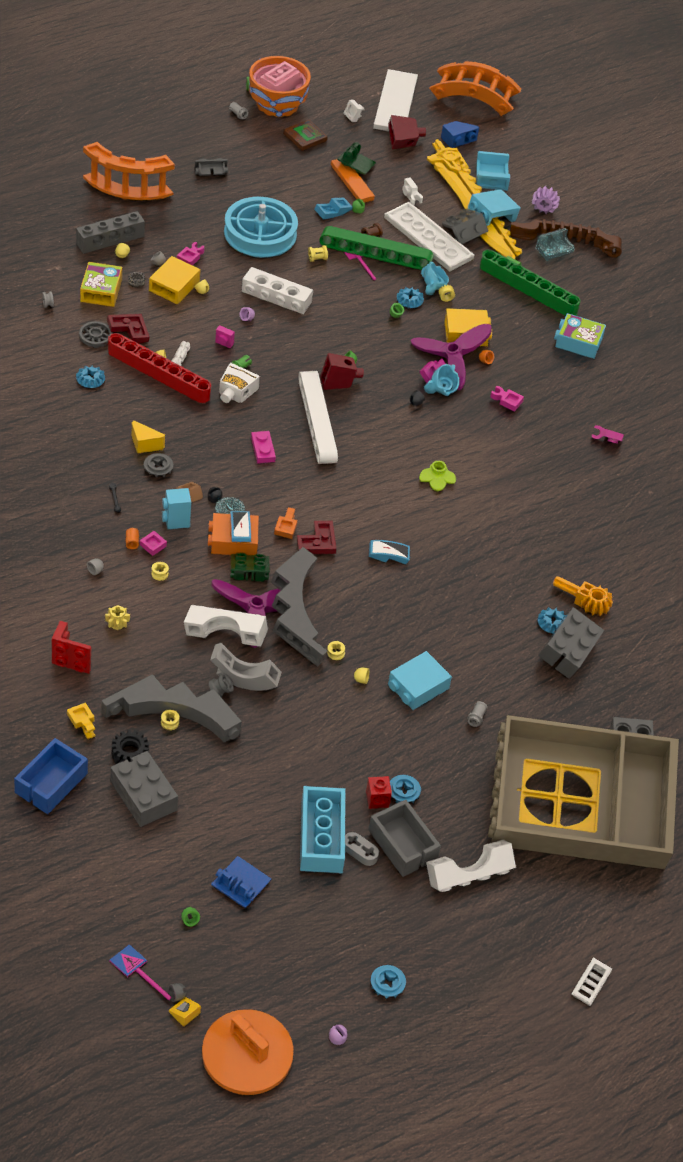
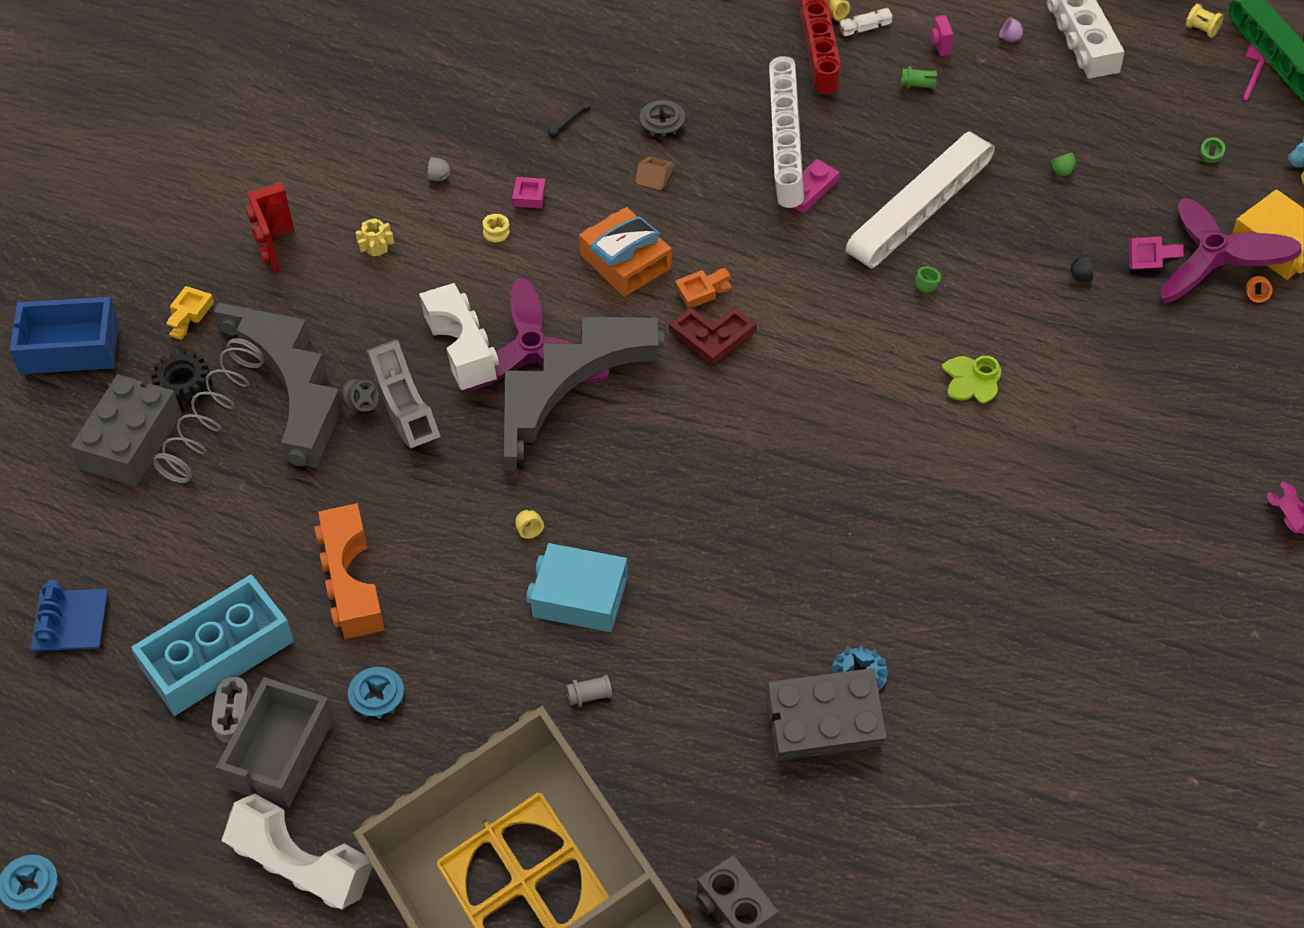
camera: 60 degrees right, 5 degrees up
(132, 538) = (520, 168): orange hinge -> none
(146, 438) = (684, 79): yellow slope -> none
(172, 724) = (259, 384): light yellow bush -> none
(177, 508) = (596, 172): medium azure brick -> none
(198, 784) = (258, 354): none -> light grey piece
(214, 494) = (676, 195): black hinge -> none
(227, 428) = (786, 132): none -> white beam
(232, 503) = (665, 213): clear light blue gear -> none
(238, 384) = (877, 95): white torso -> none
(250, 563) = (591, 296): dark green hinge -> none
(336, 655) = (539, 465): light yellow bush -> none
(339, 372) = (1019, 165): dark red torso -> none
(346, 765) = (356, 602): none -> orange arch
(367, 449) = (927, 279): none -> bright green hinge
(378, 792) = (335, 665): red brick -> none
(383, 550) = (777, 413): slope -> none
(416, 300) = (1257, 157): dark azure gear -> none
(445, 377) = (1148, 265): medium azure hair -> none
(507, 399) = (1210, 361): dark pink plate -> none
(587, 596) = (945, 678): light orange gear -> none

